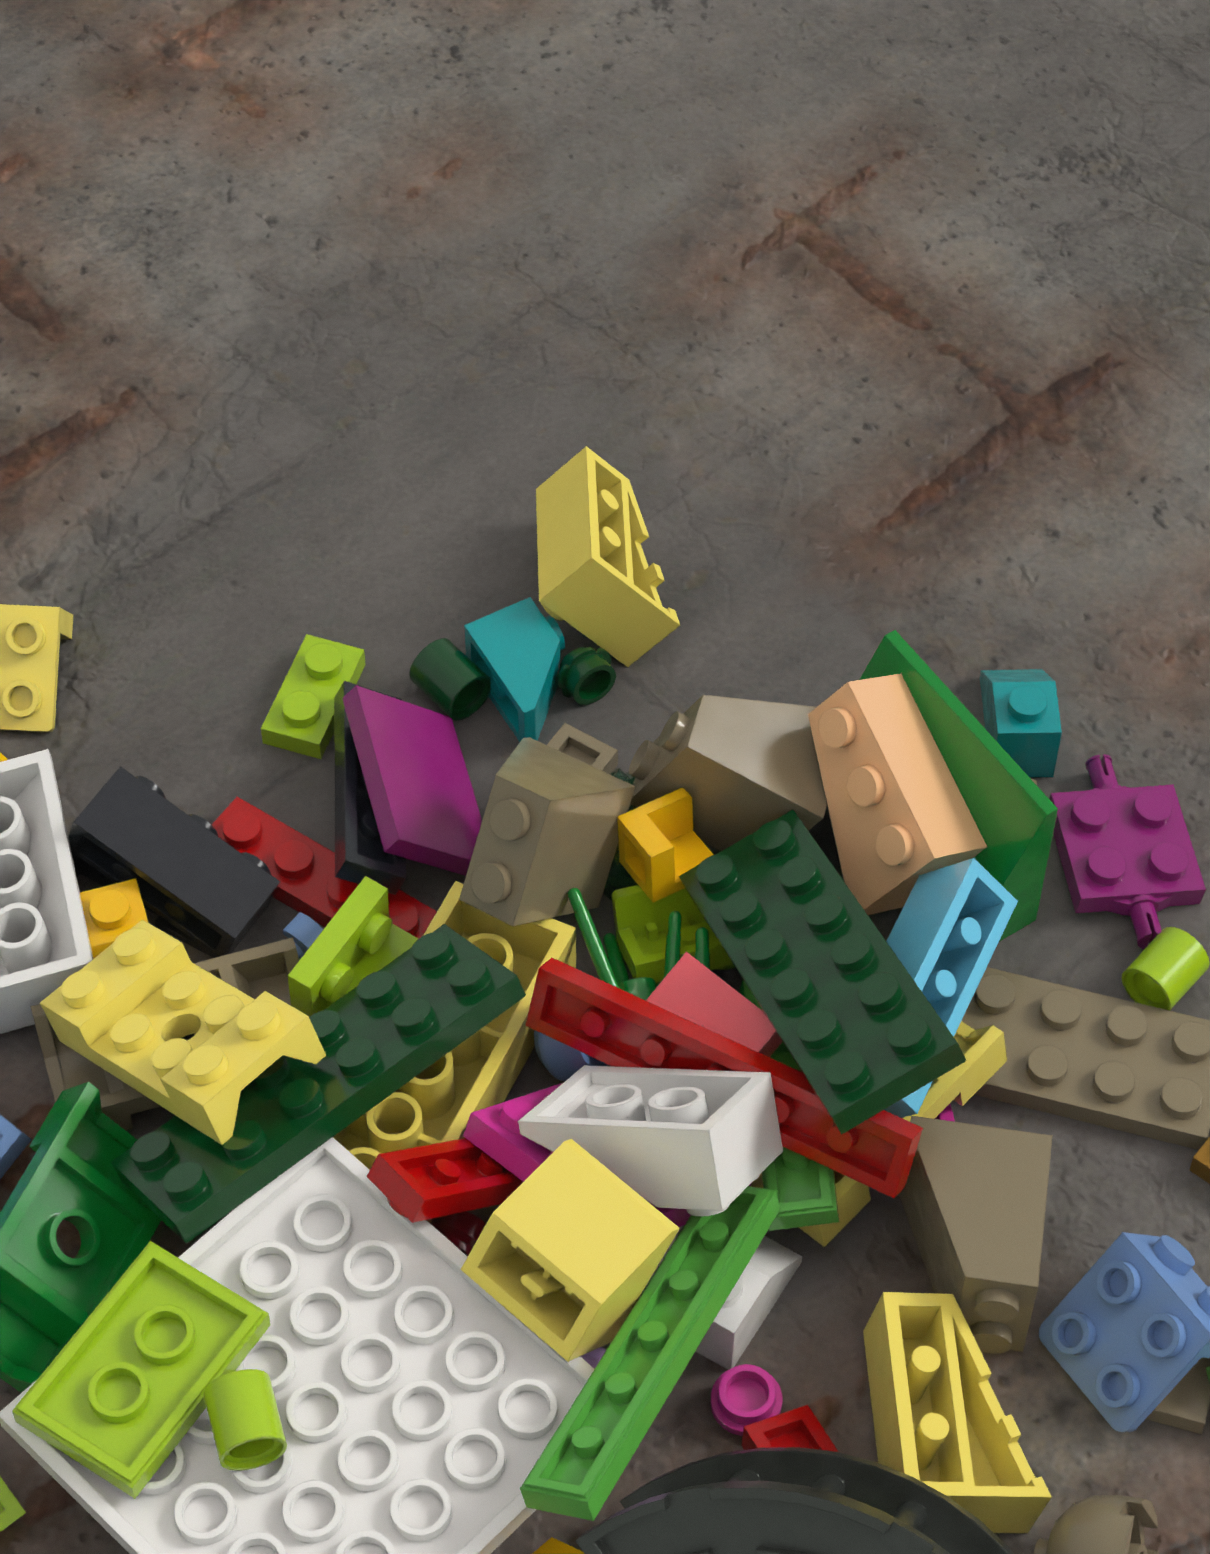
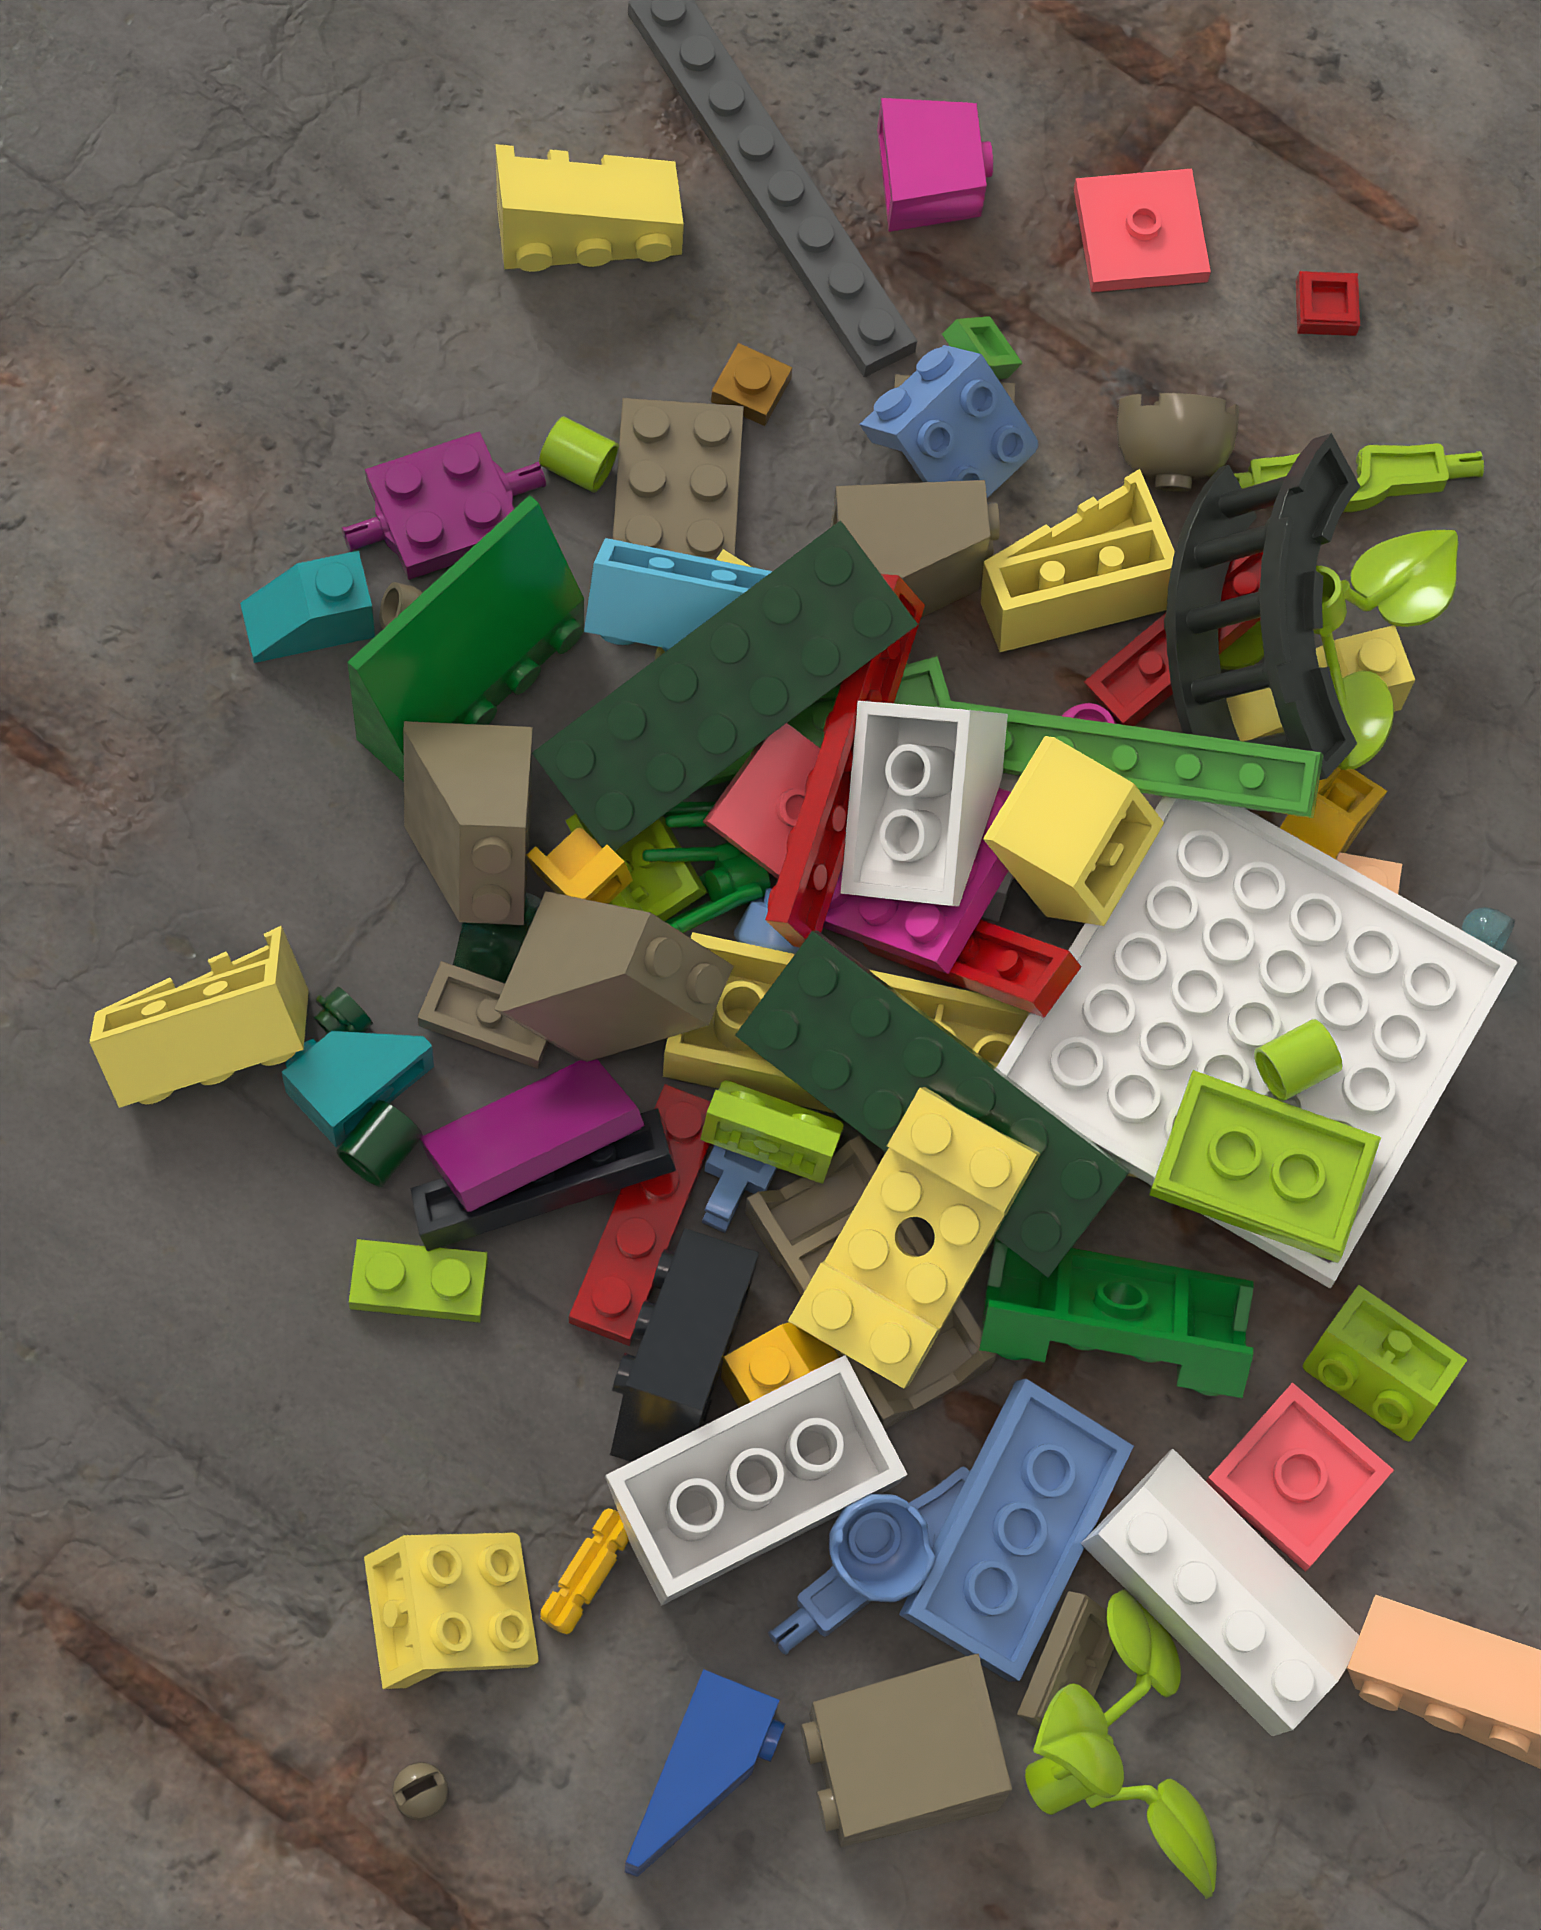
camera: 110 degrees left, 15 degrees up
(888, 792) = (502, 665): light nougat wedge -> none

